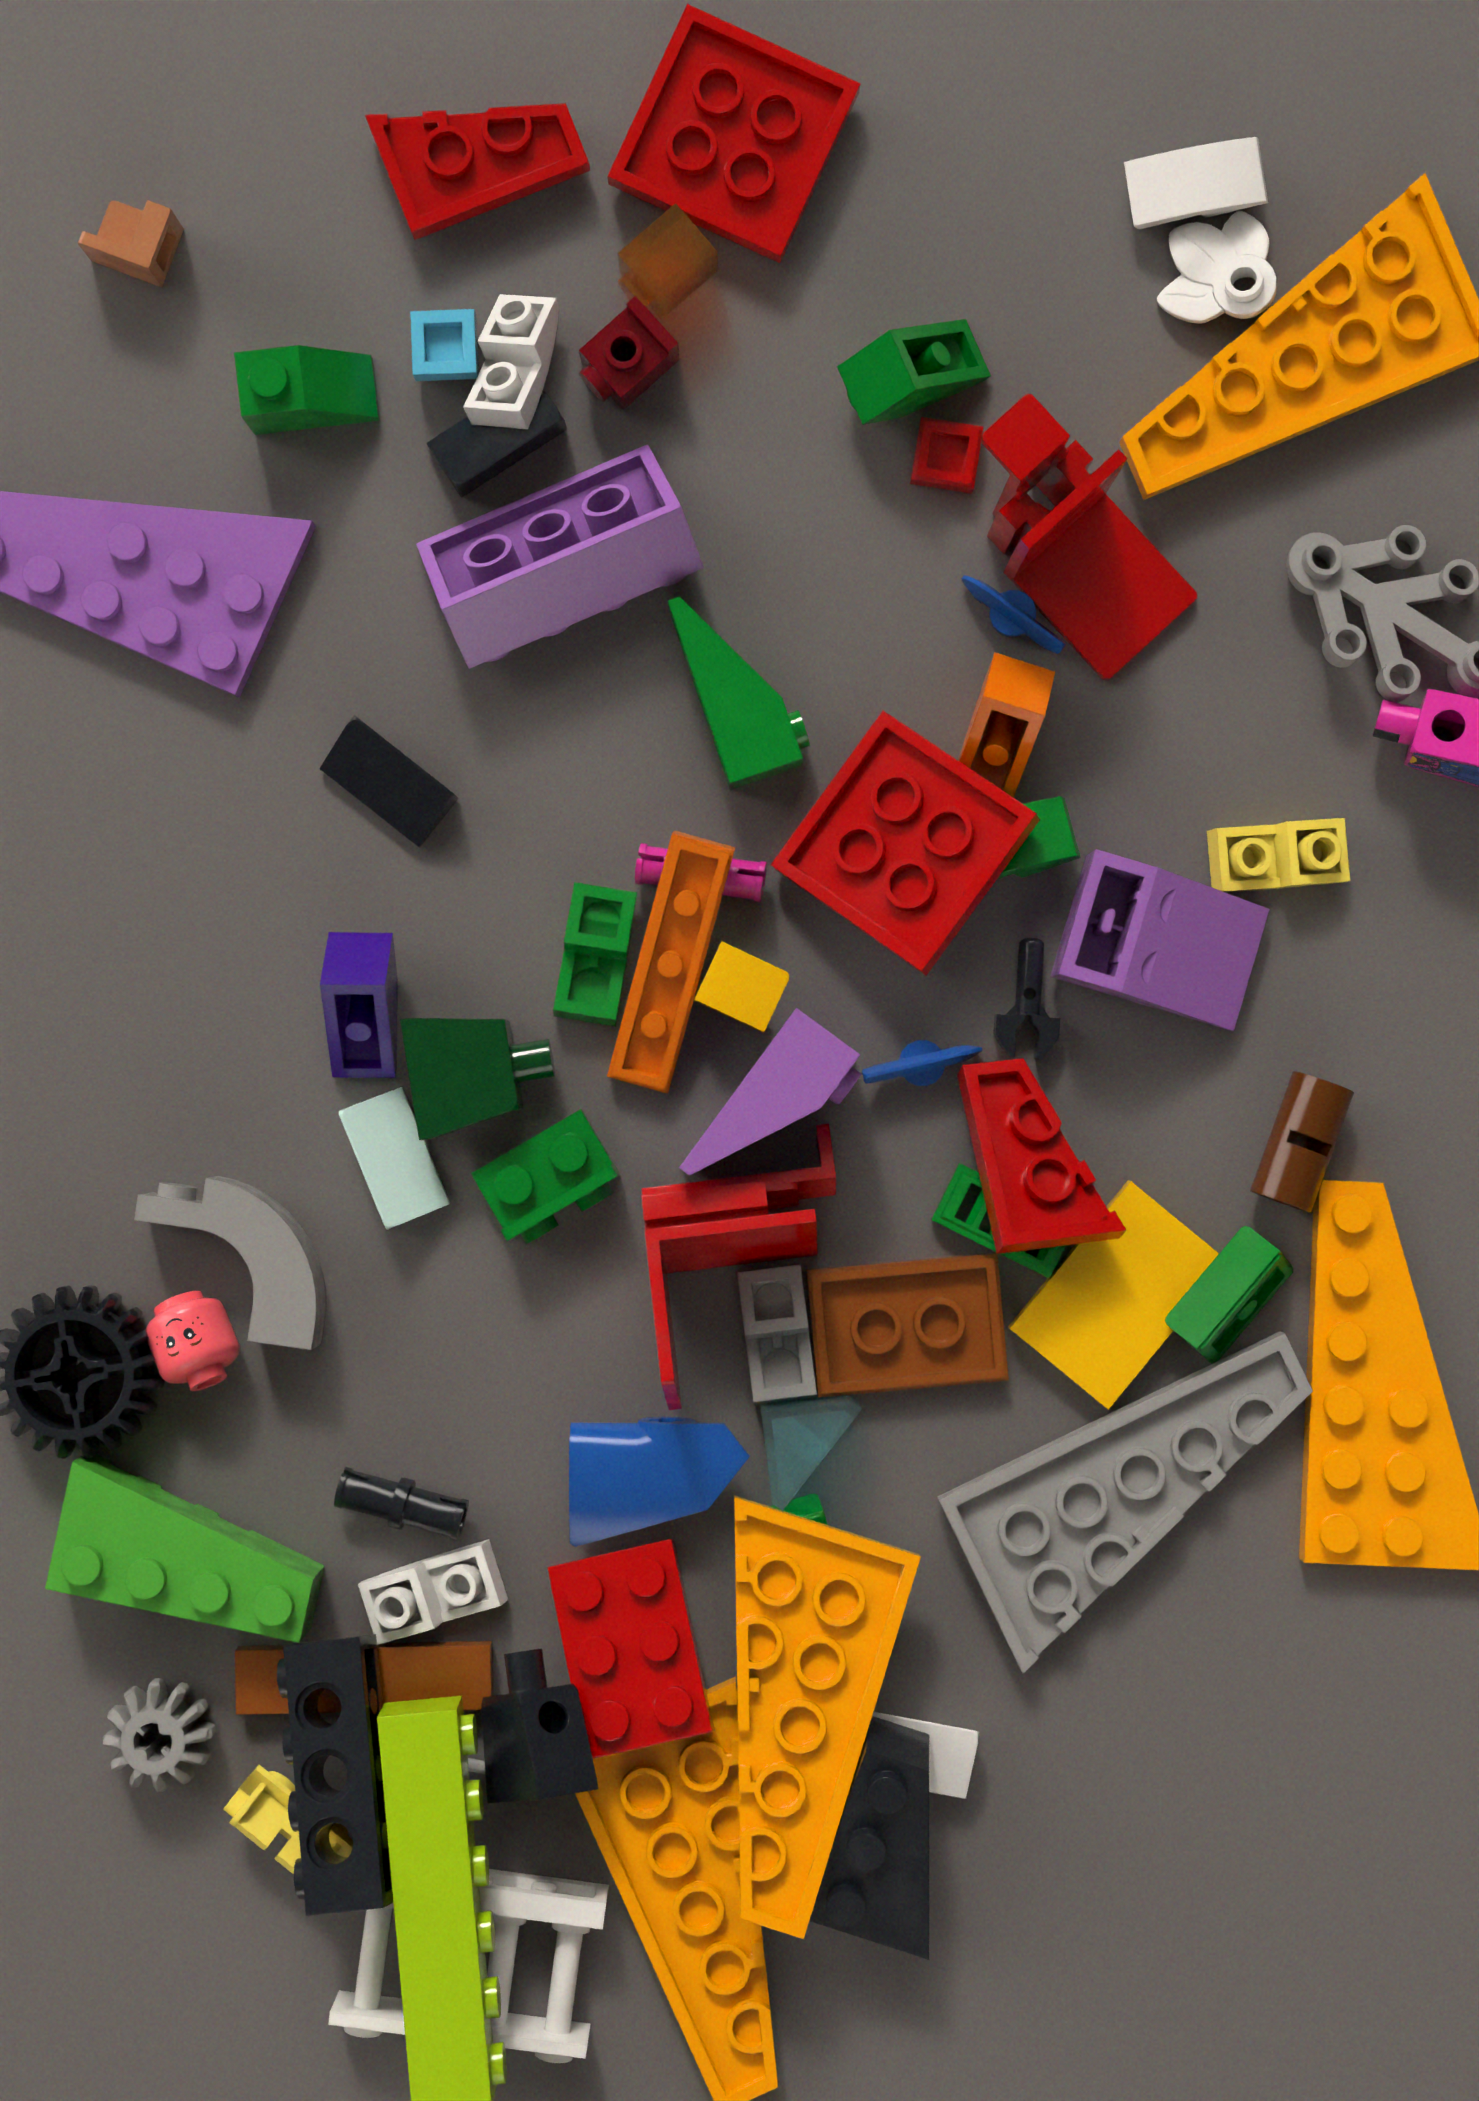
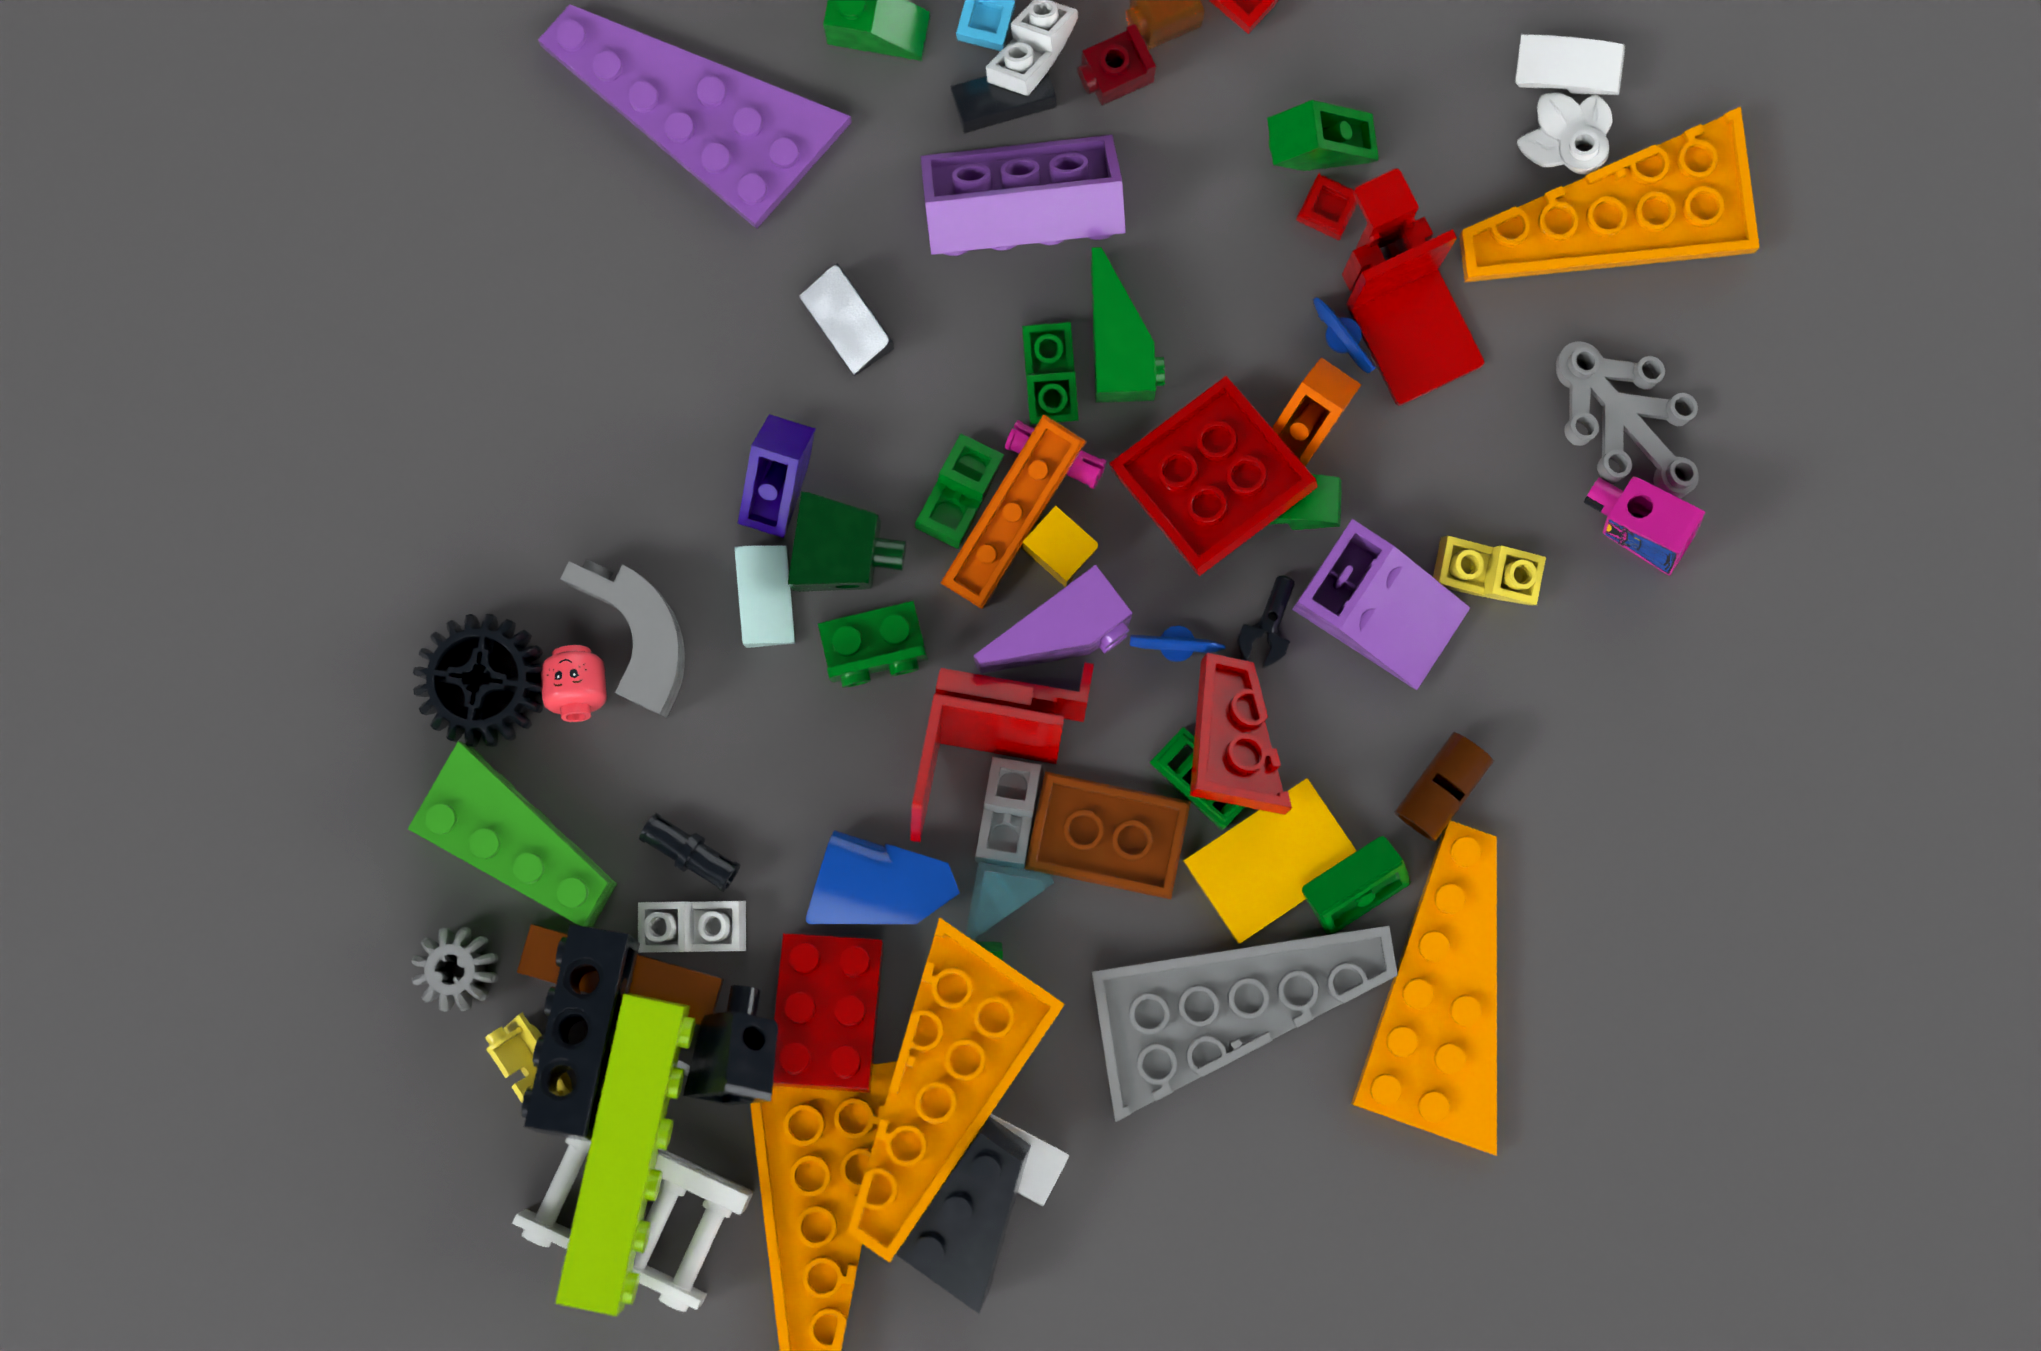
camera: 20 degrees right, 5 degrees down
(662, 771) = (1050, 372): none -> green slope

